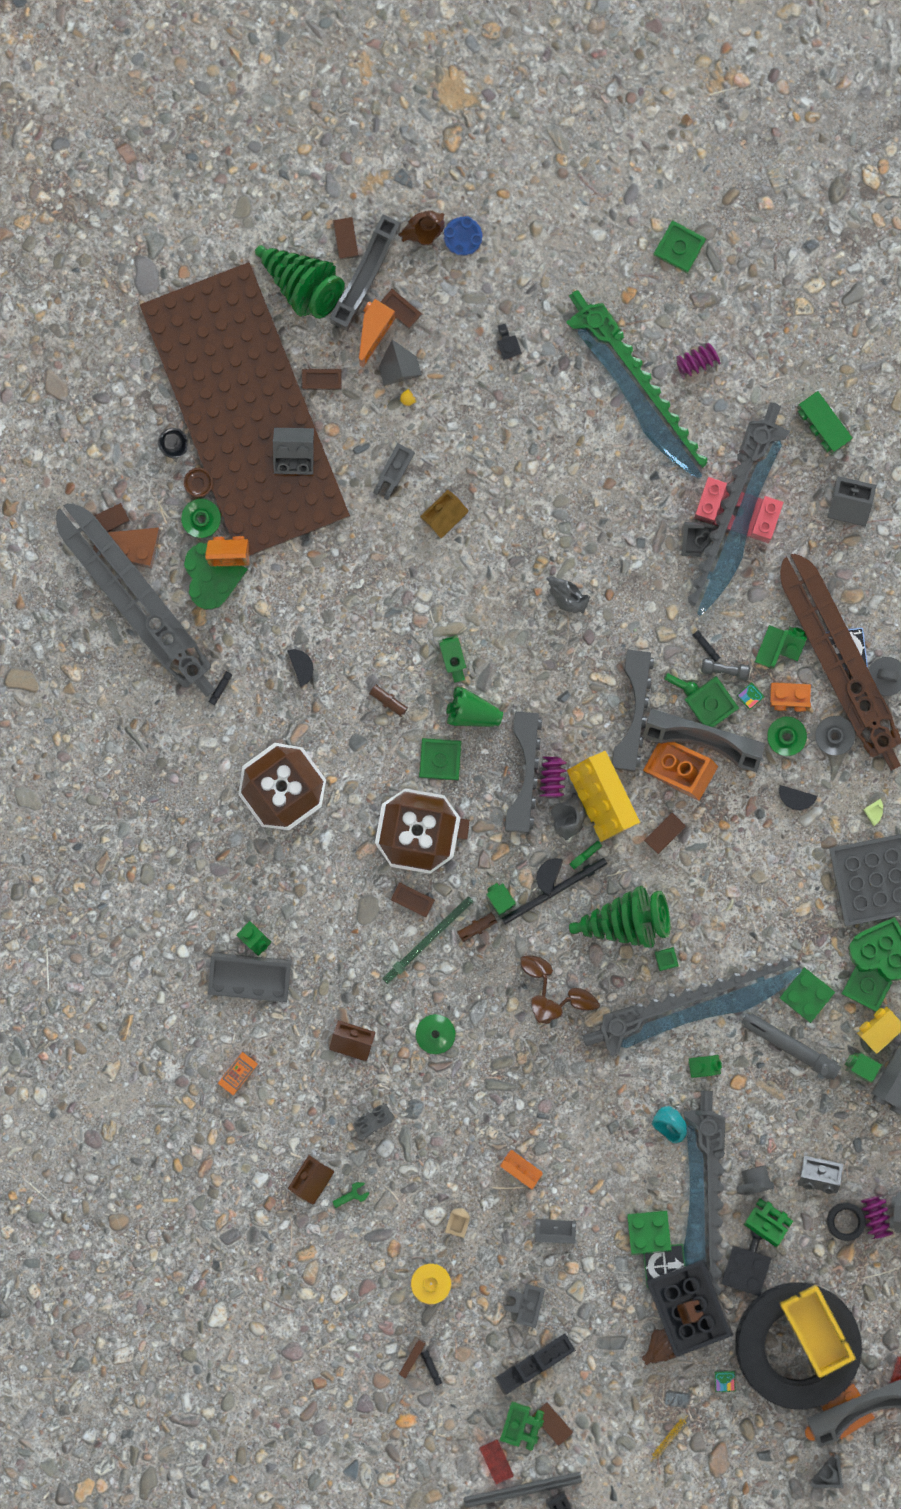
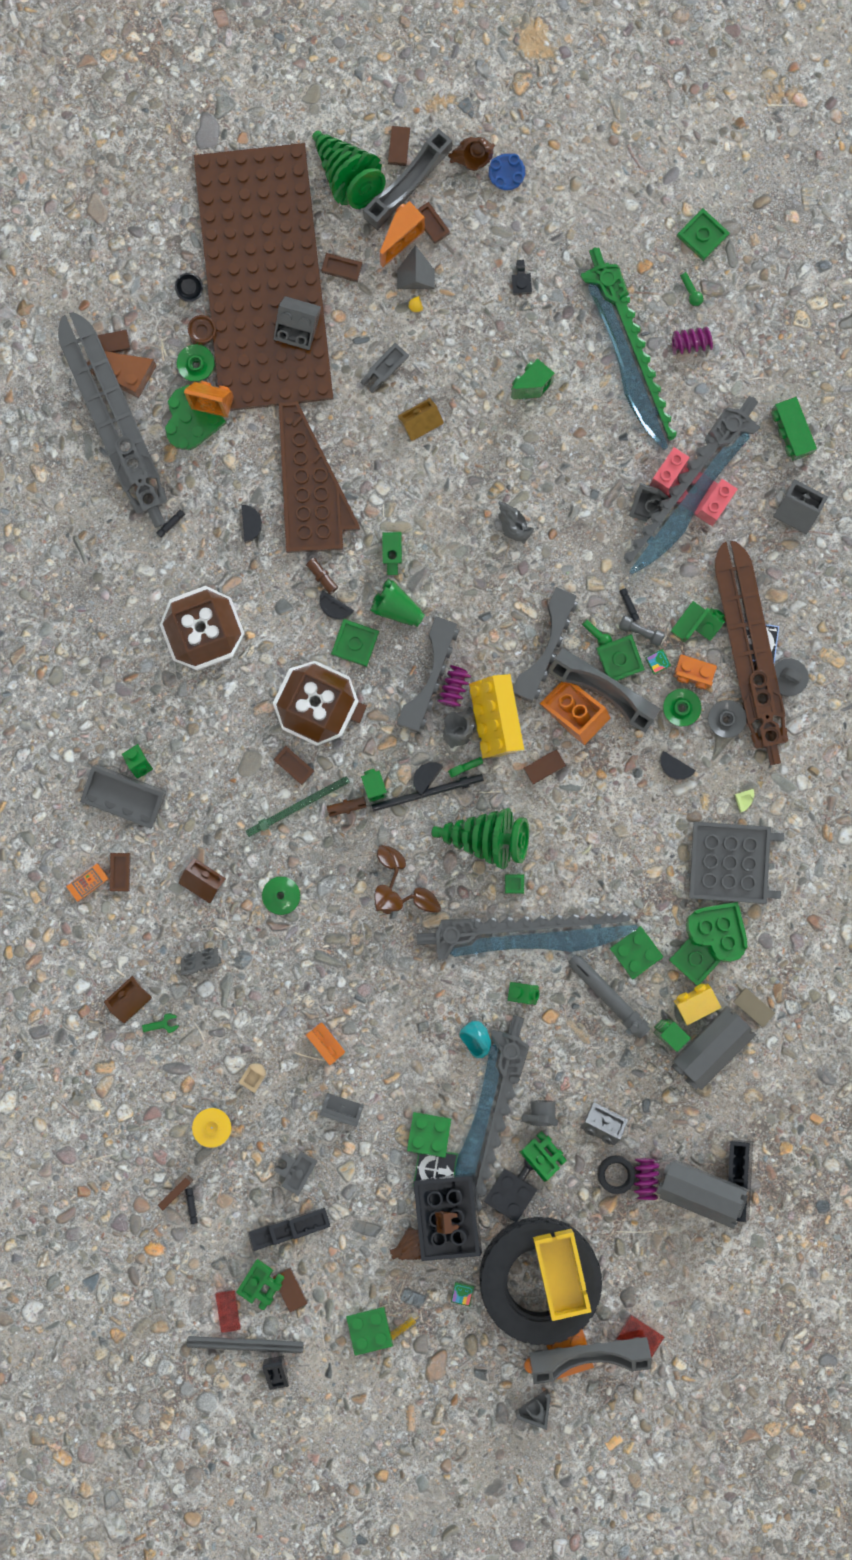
camera: 10 degrees right, 0 degrees up
(267, 1054) = (120, 872): none -> reddish brown tile
(357, 623) = (311, 494): none -> reddish brown wing
(409, 729) = (334, 608): none -> black tile
(549, 447) = (533, 382): none -> green slope
(643, 1442) = (369, 1331): none -> green plate
(689, 313) = (695, 298): none -> green bar

